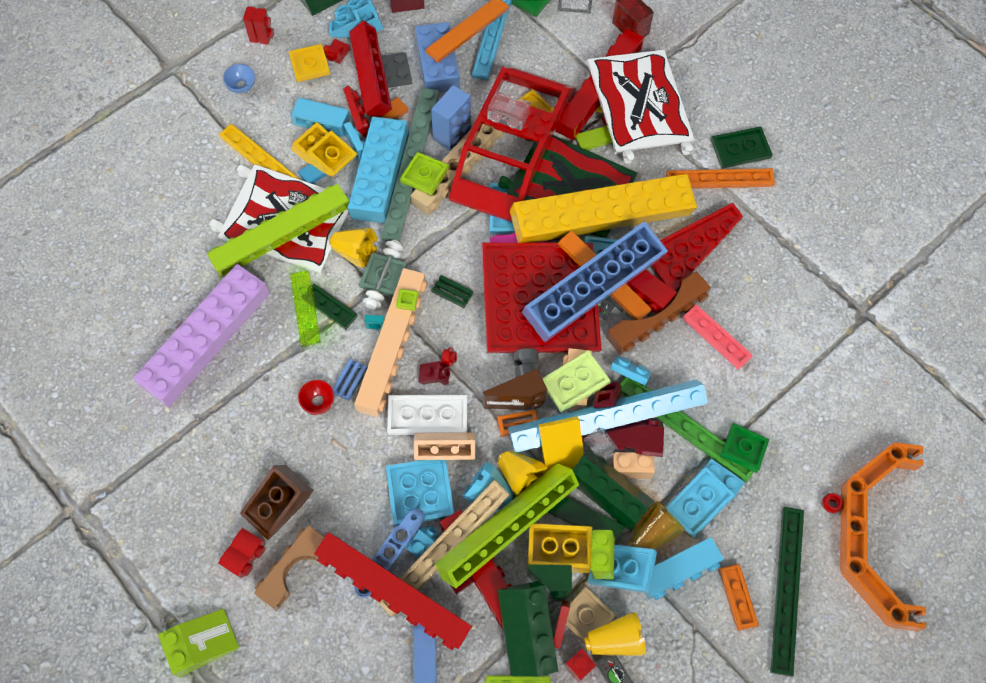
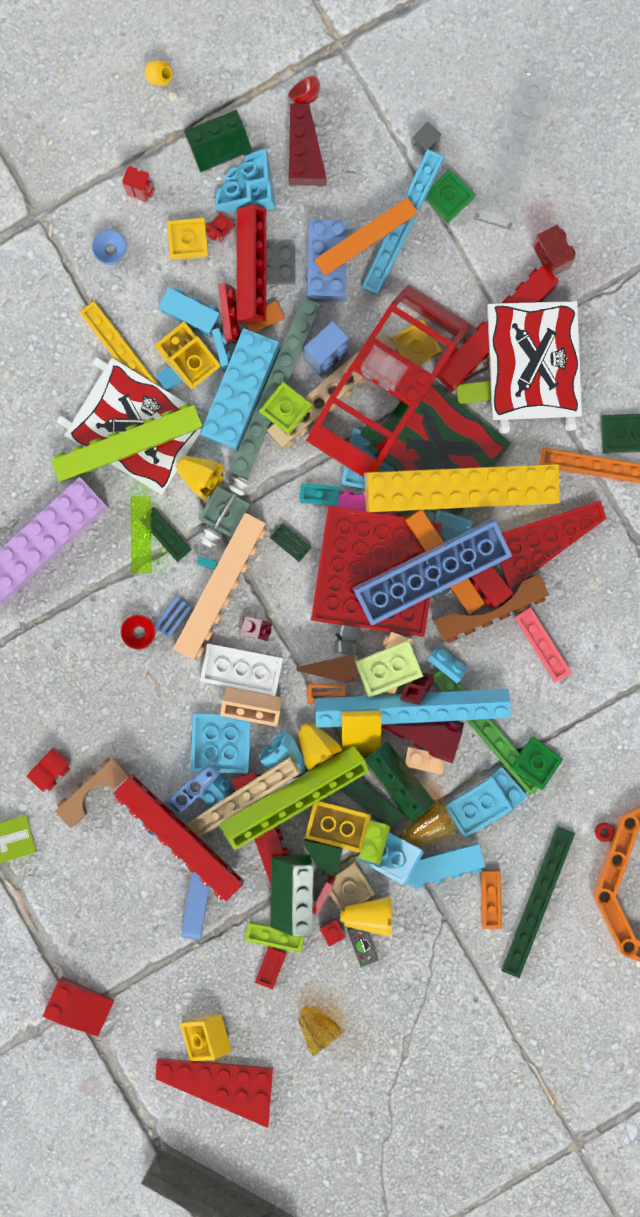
camera: 15 degrees right, 20 degrees up
(276, 500) = (86, 726): reddish brown slope -> none
(407, 299) = (242, 550): lime tile -> none
(449, 356) = (273, 614): red plate -> none
(469, 244) = (319, 494): none -> teal plate
(601, 443) = (398, 739): clear brick -> none

